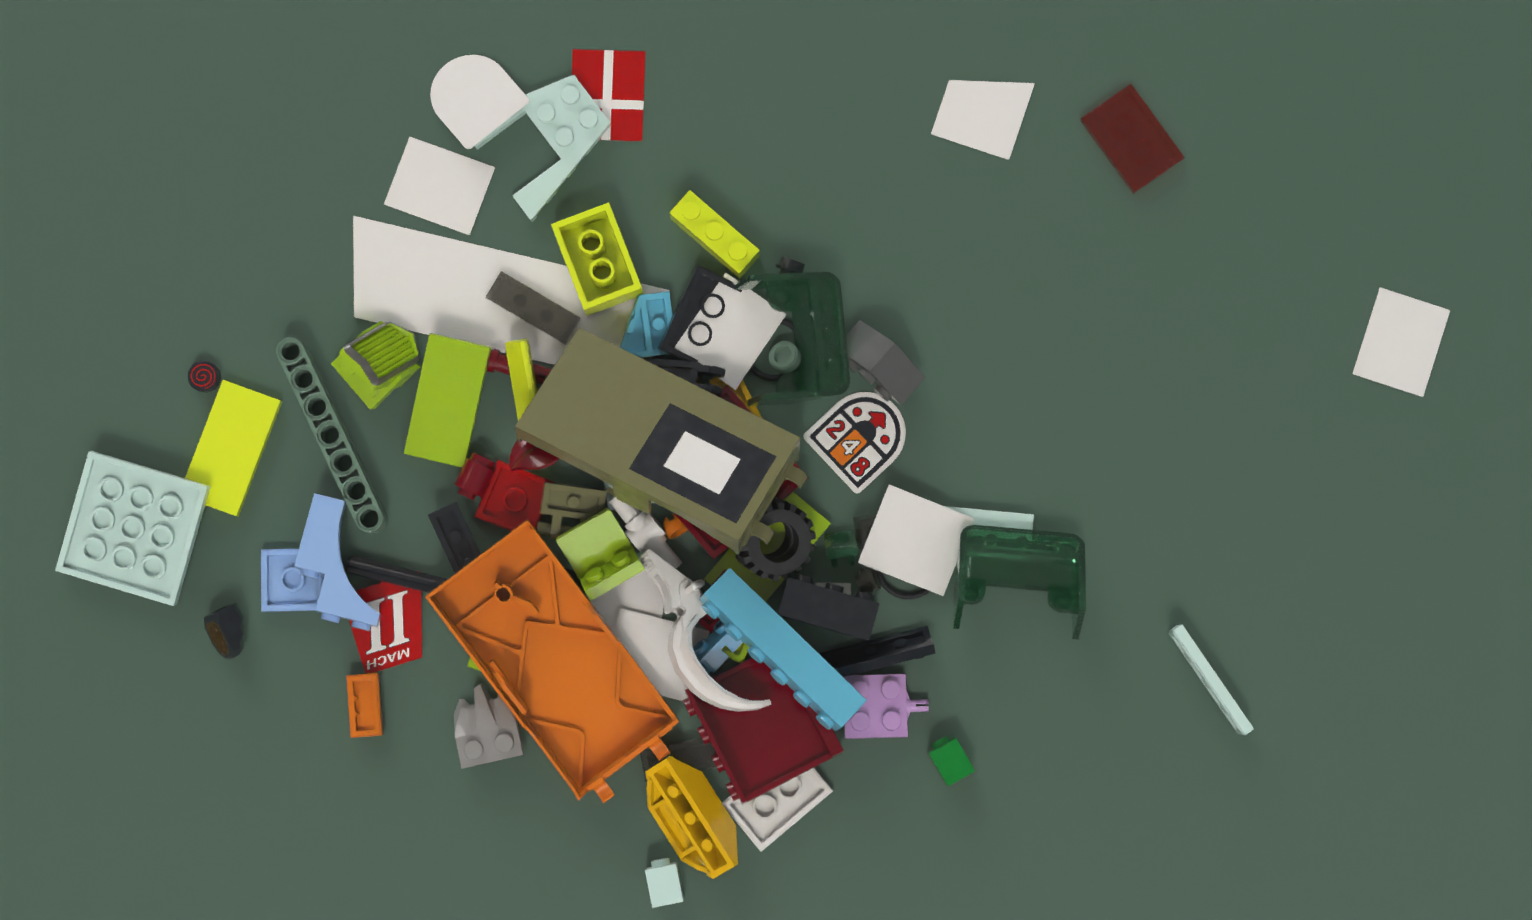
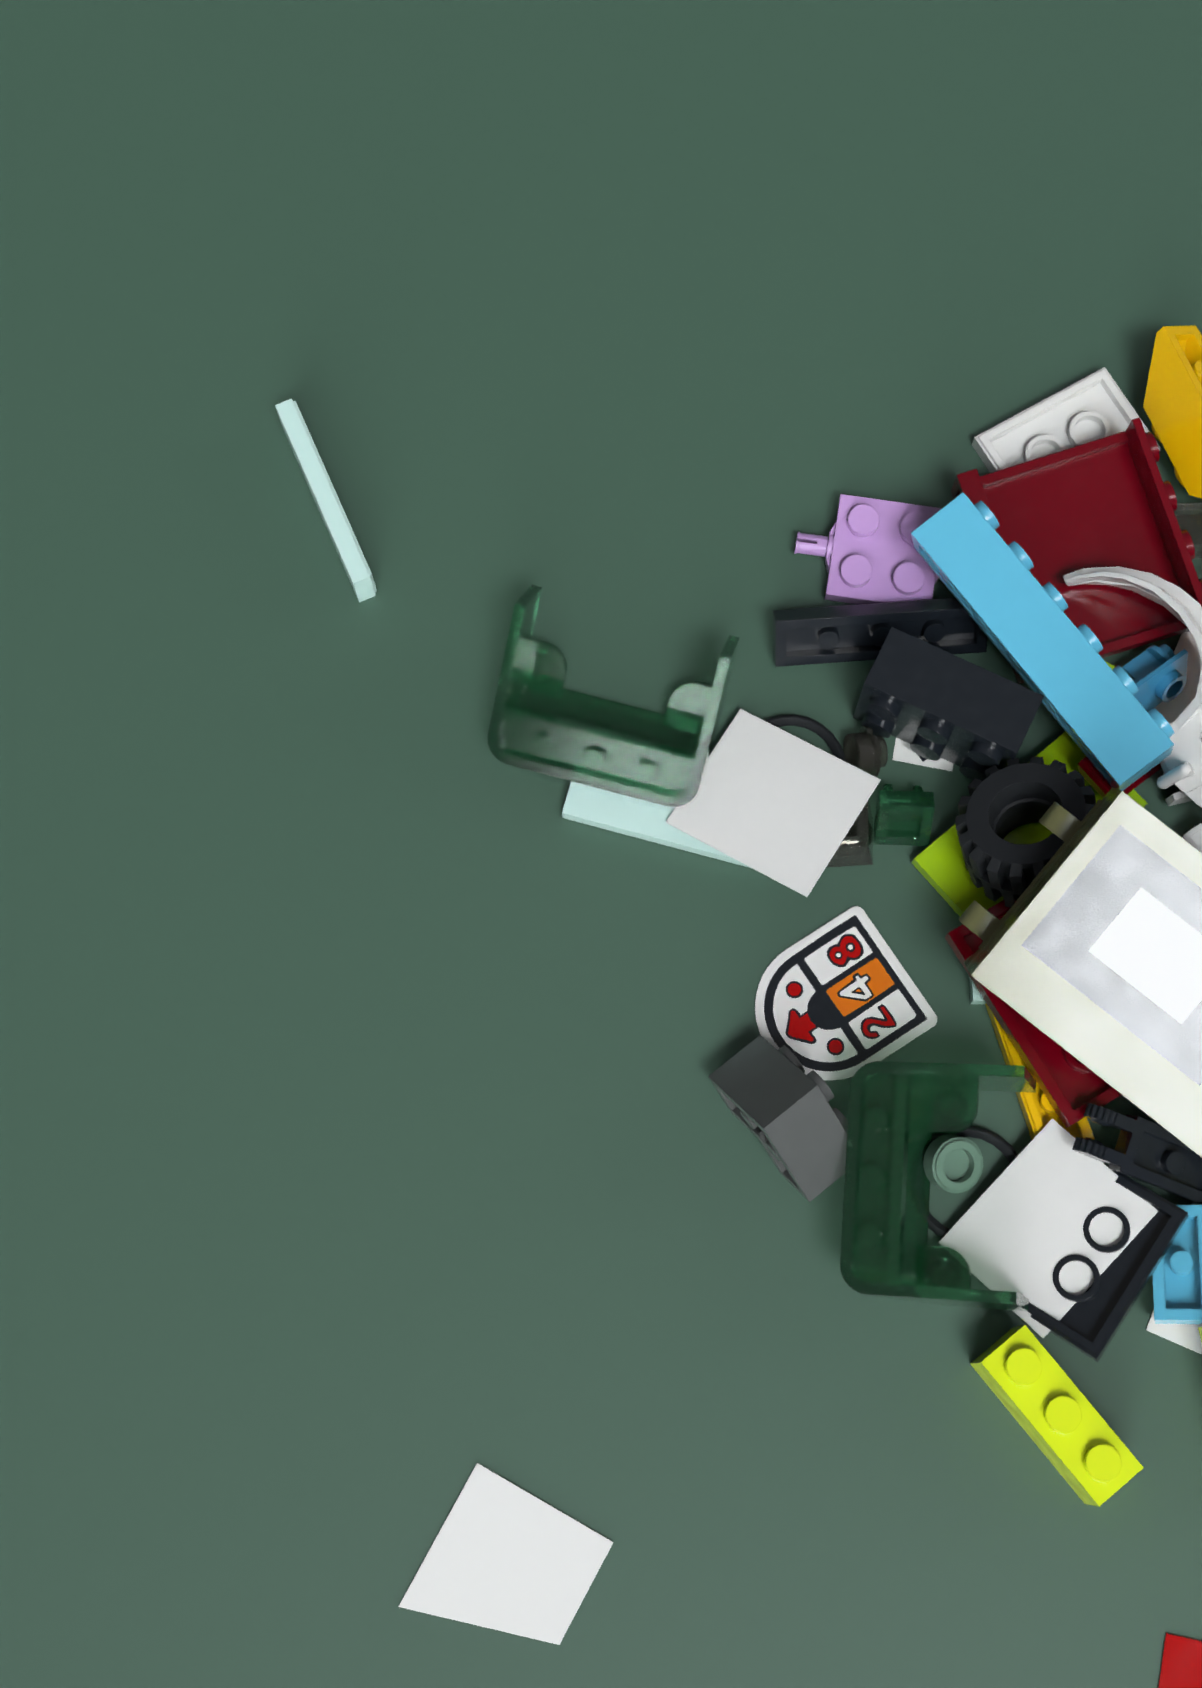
camera: 170 degrees left, 10 degrees down
(790, 266) = (919, 1326): black plate -> none
(950, 760) = (776, 447): green brick -> none
(1132, 138) = (240, 1460): clear red tile -> none

